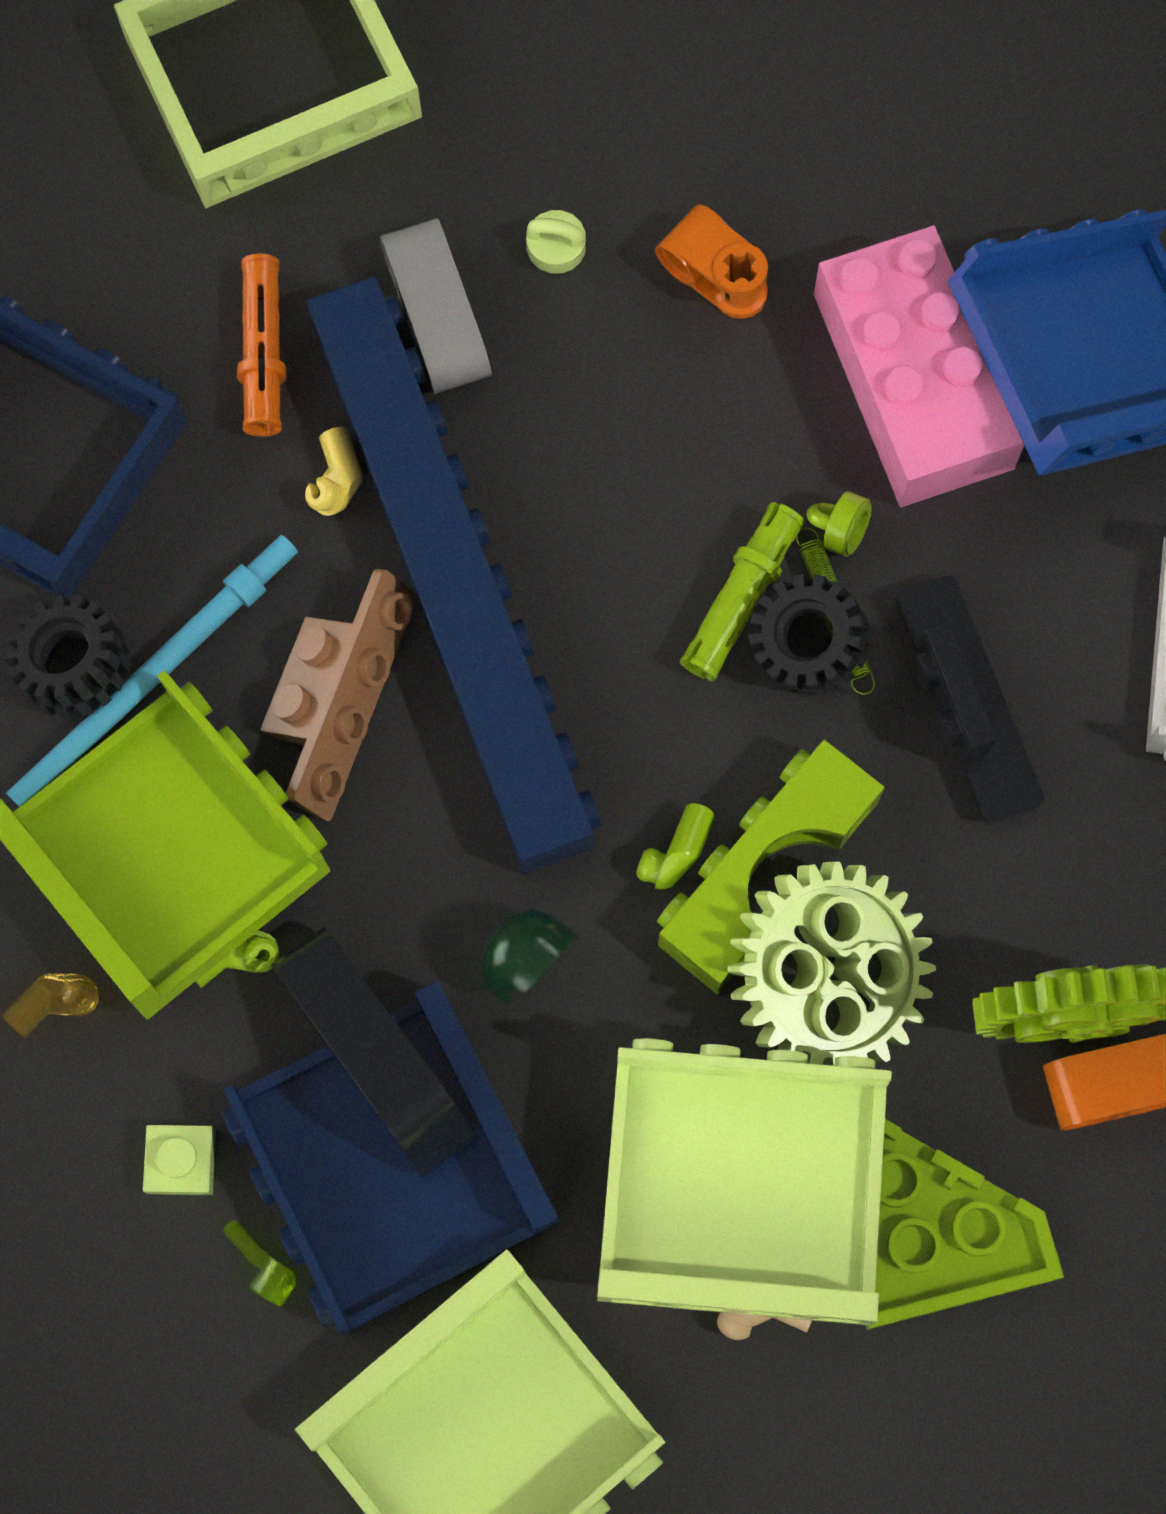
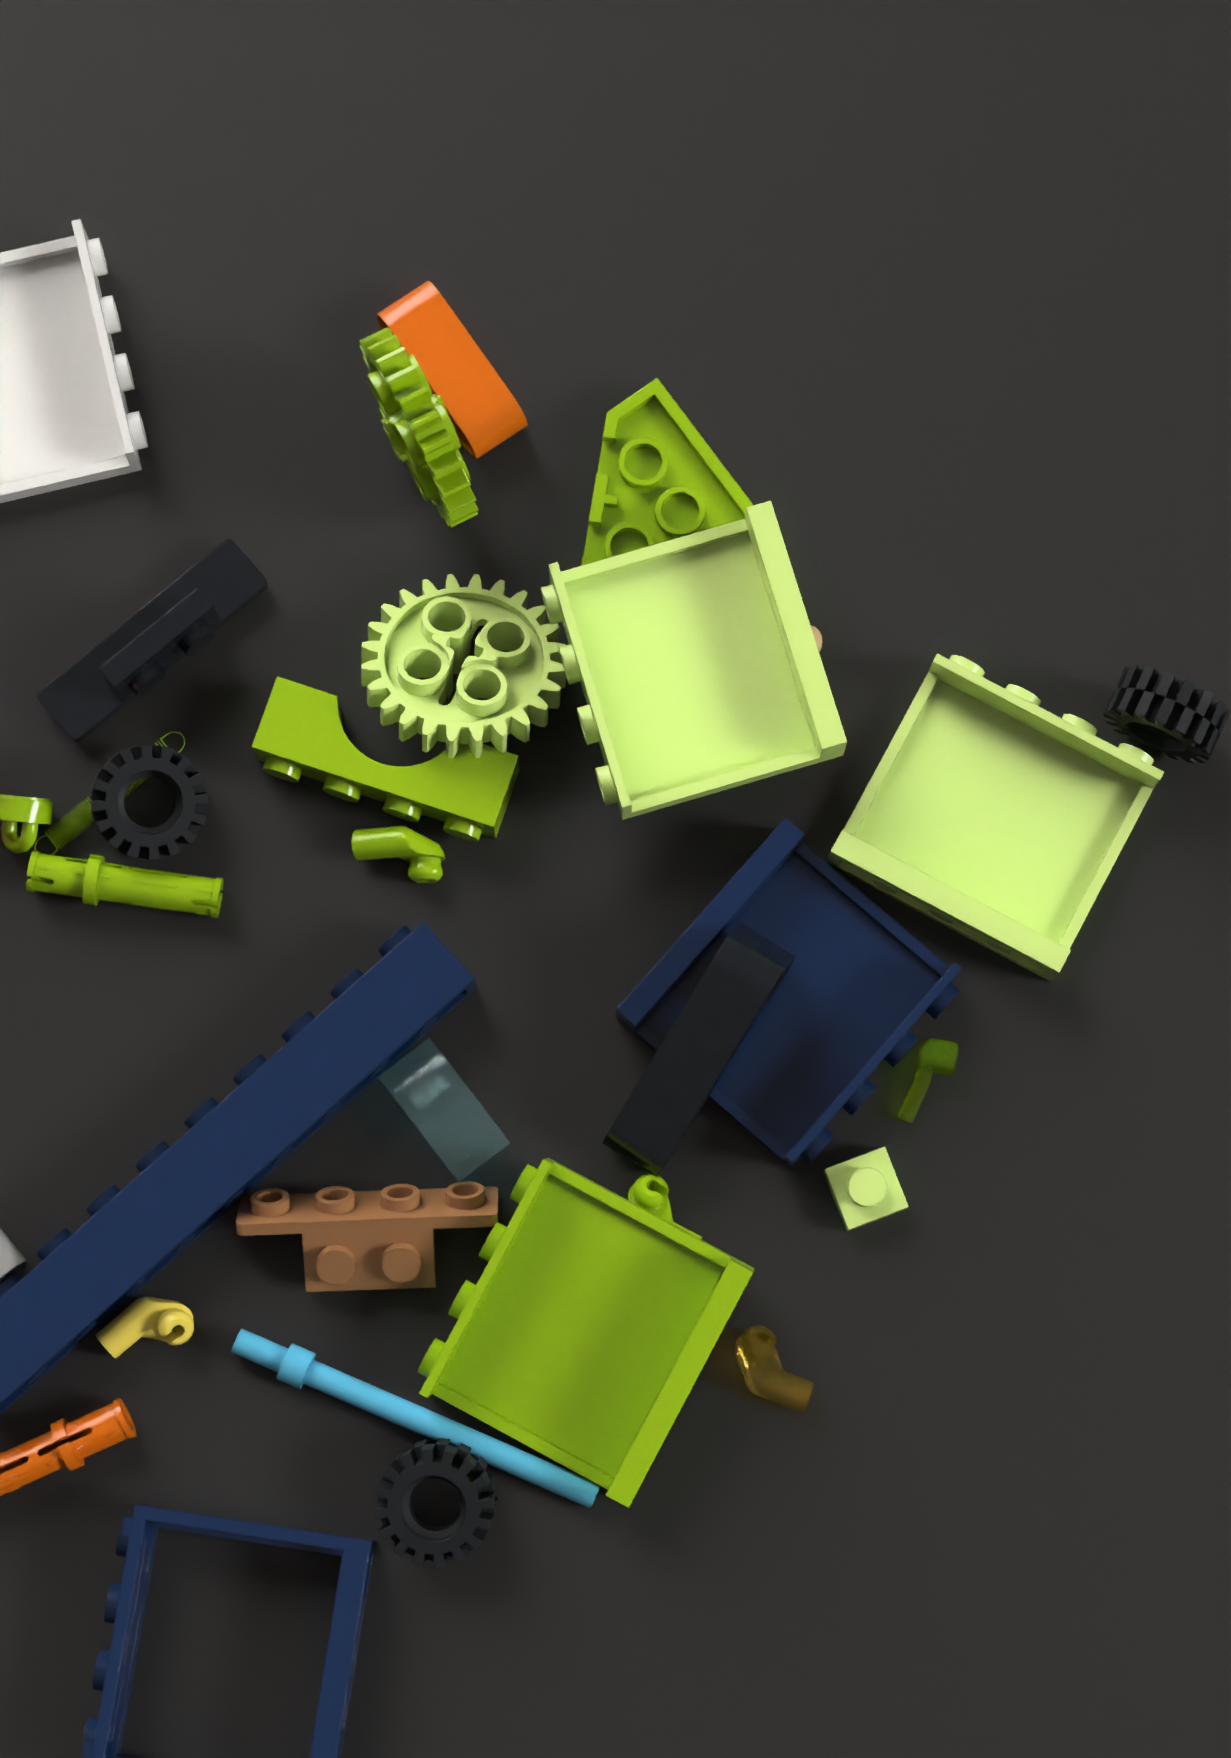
camera: 115 degrees left, 5 degrees up
(417, 795) = (443, 1109): none -> clear light blue slope
(523, 951) = (557, 942): clear green hair -> none

